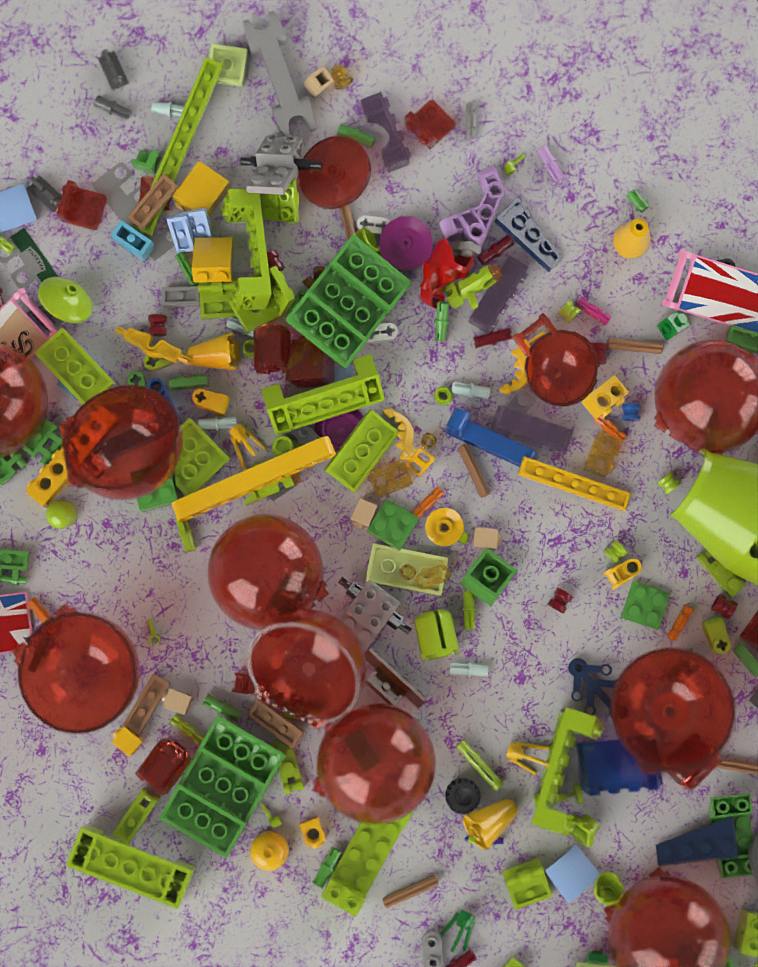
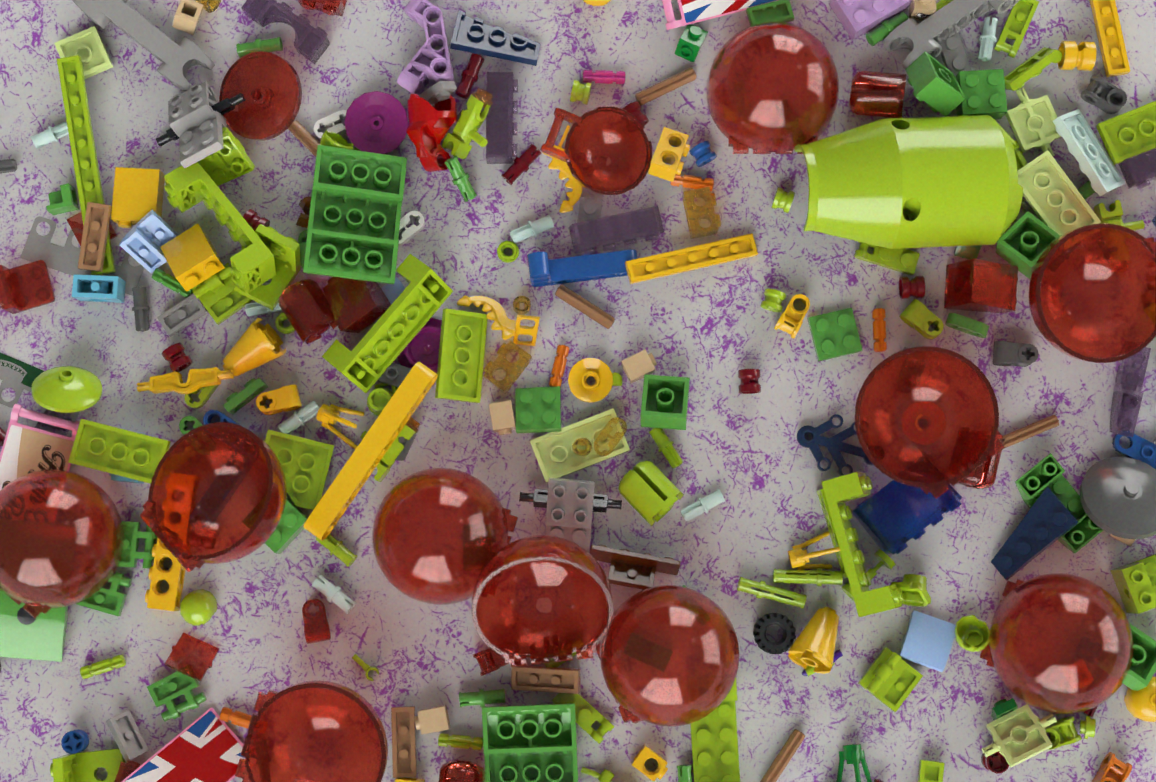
camera: 30 degrees left, 0 degrees up
(35, 547) = (192, 656): none -> clear red piece
(136, 580) = (315, 626): none -> clear red piece
(153, 274) = (140, 309): none -> dark grey axle
(163, 565) = (334, 594): none -> light aqua pin
(513, 770) = (808, 576): none -> lime pin

